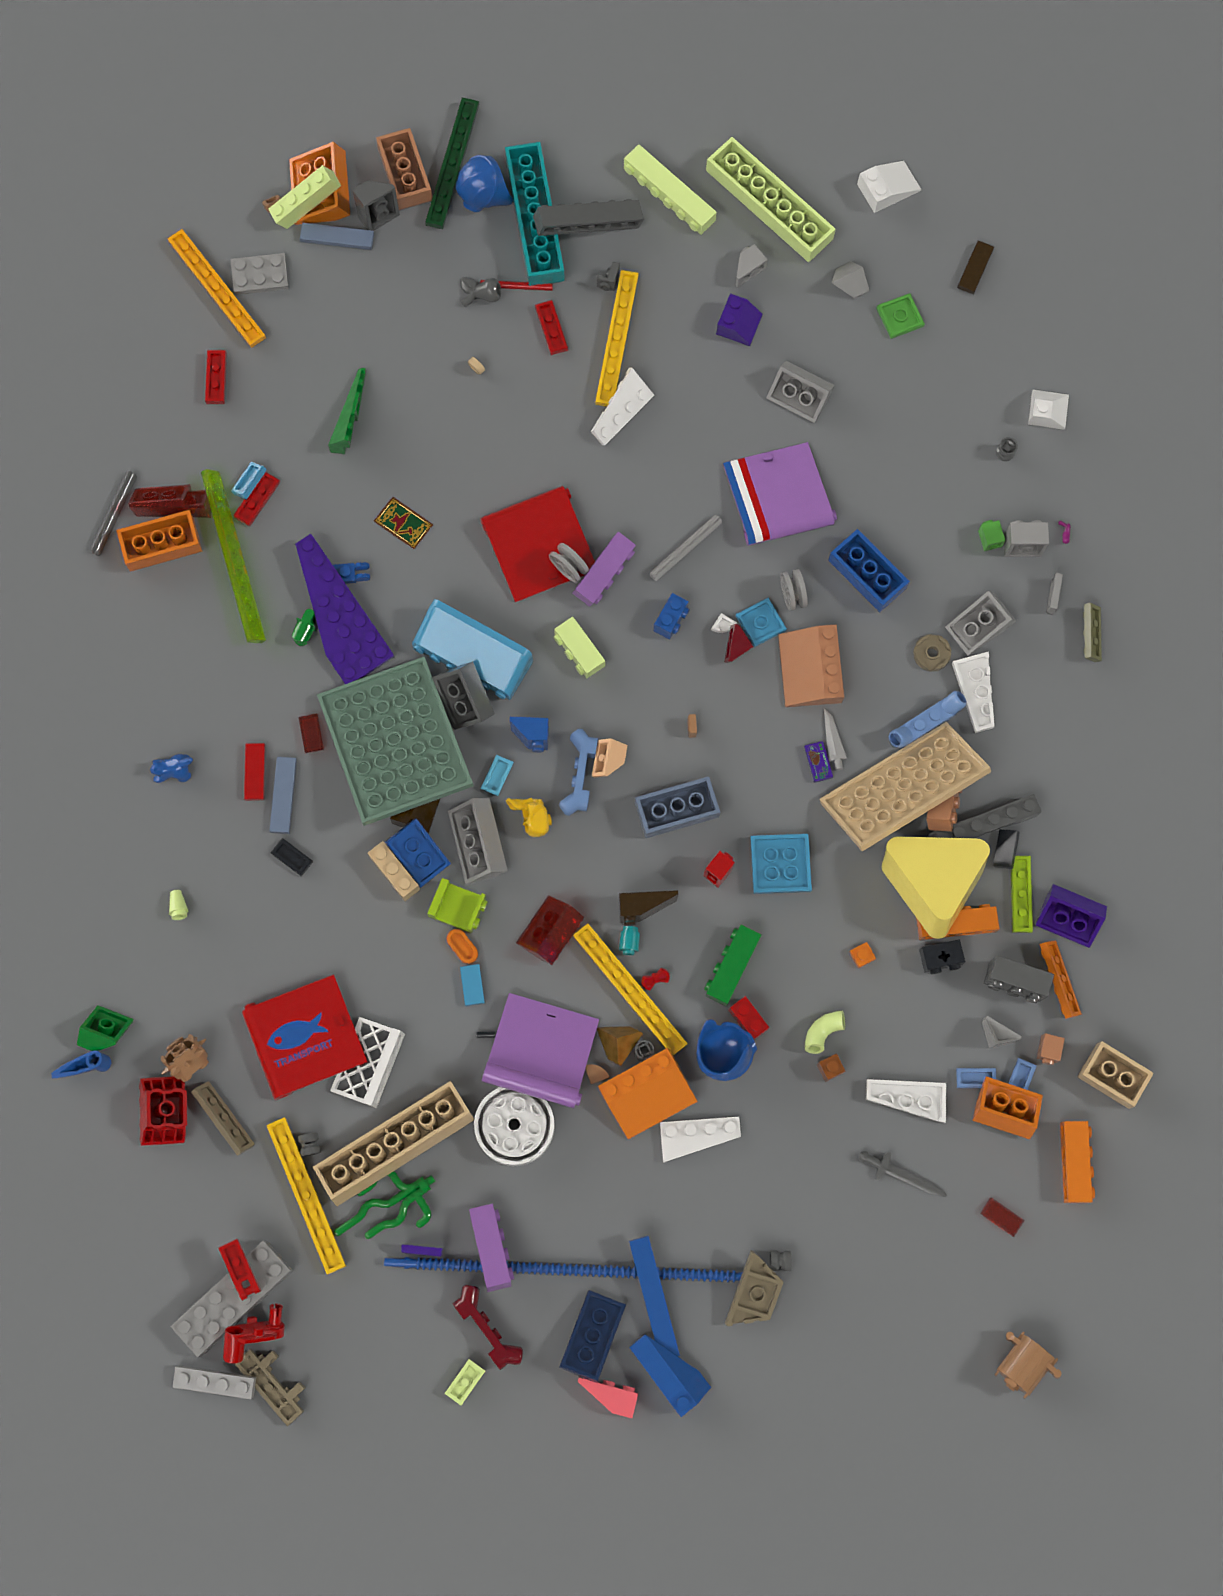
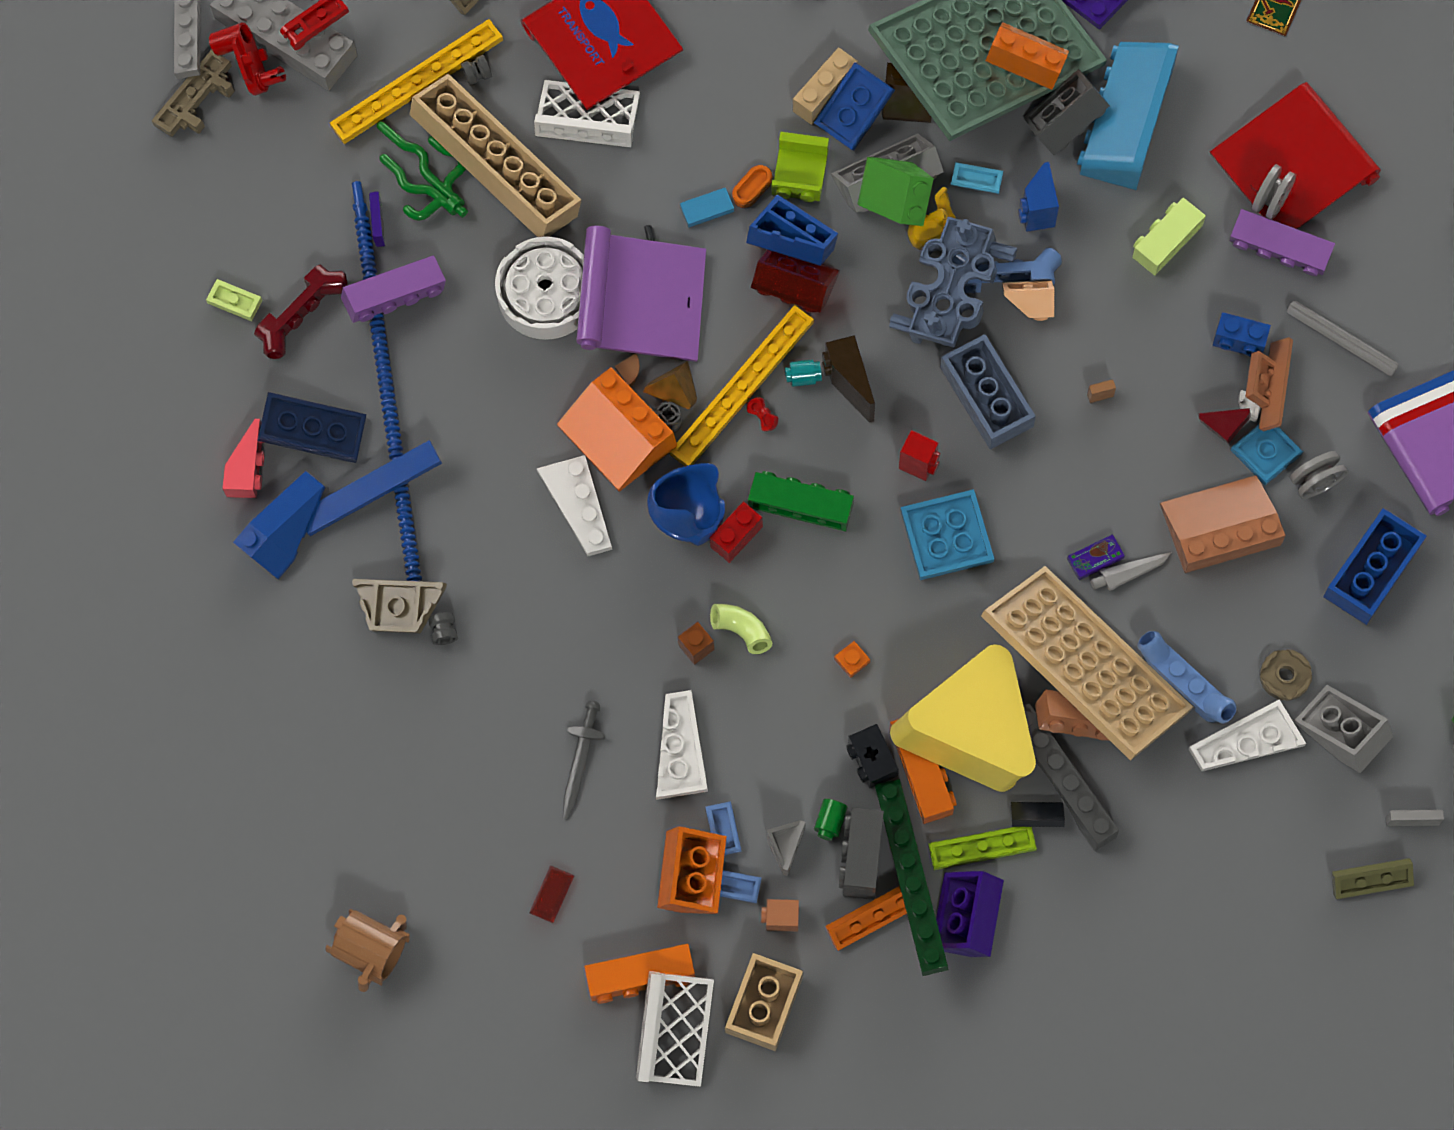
camera: 85 degrees right, 5 degrees down
(412, 710) = (1027, 55): none -> orange slope
(505, 834) = (896, 190): none -> bright green slope
(514, 923) = (792, 232): none -> blue wedge
(621, 825) = (978, 246): none -> sand blue gear
(713, 605) = (1269, 382): none -> nougat bracket
(984, 997) = (830, 819): none -> green brick
(1043, 948) = (911, 878): none -> dark green plate
(1117, 1159) = (651, 1026): none -> white fence

